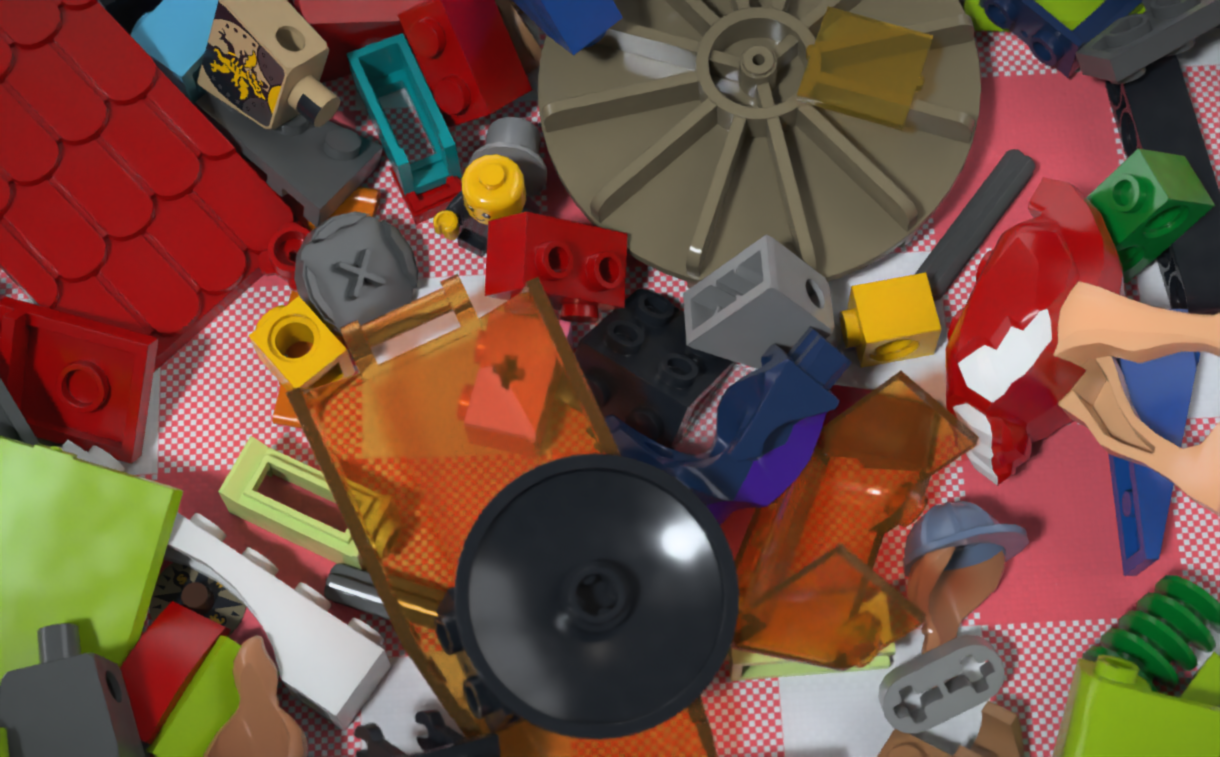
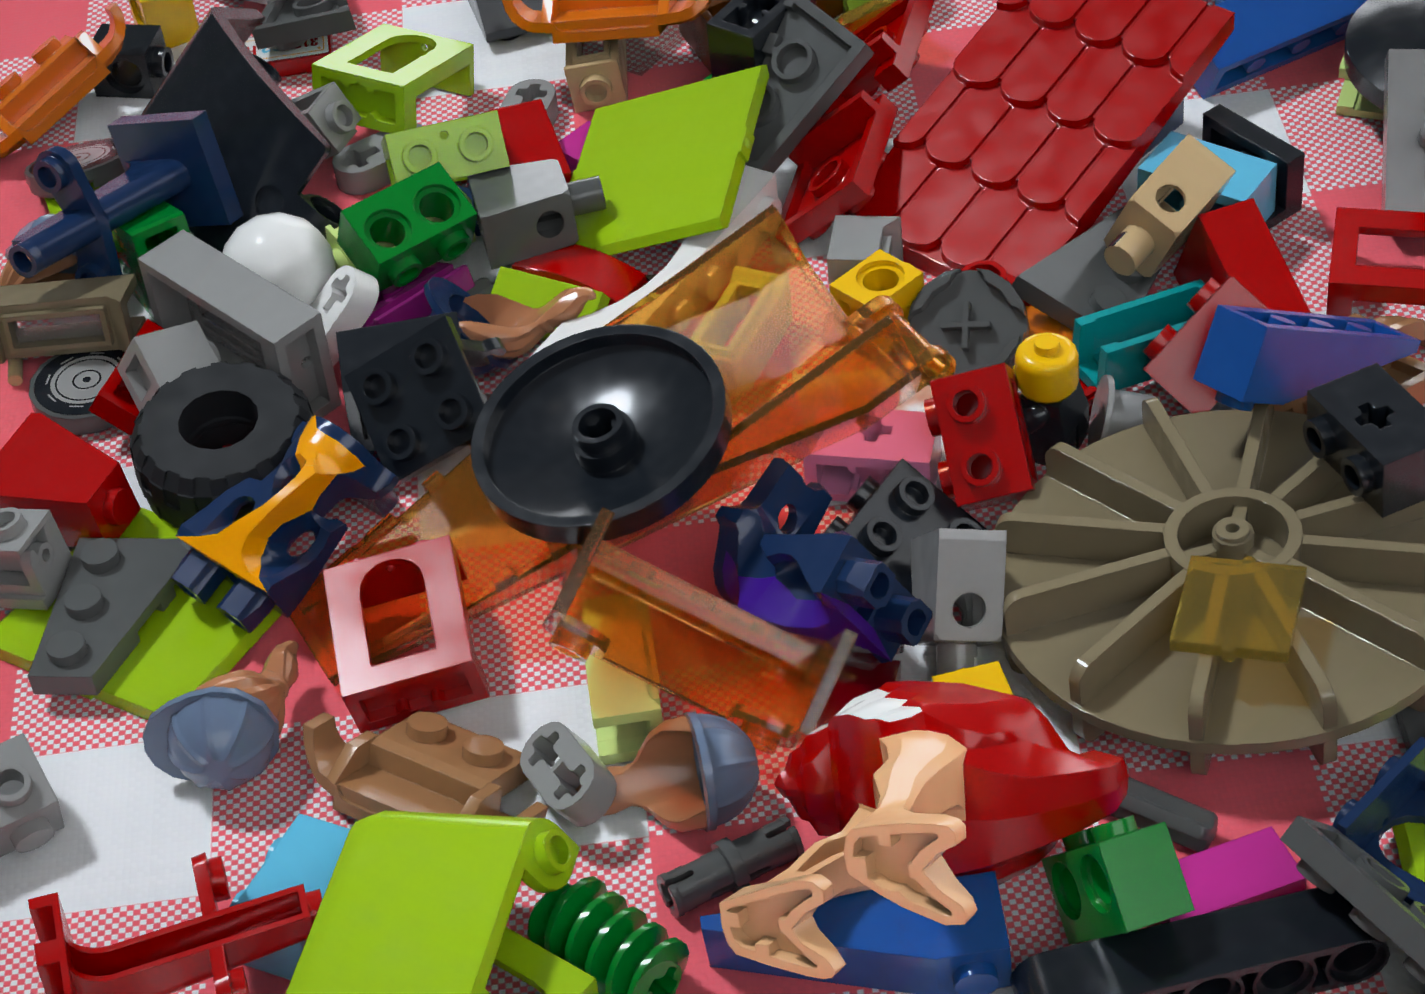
camera: 90 degrees right, 25 degrees down
(211, 373) = (858, 238): none -> light grey window
(1045, 548) = (730, 866): none -> dark grey pin
(1068, 144) = (1240, 873): none -> dark pink tile

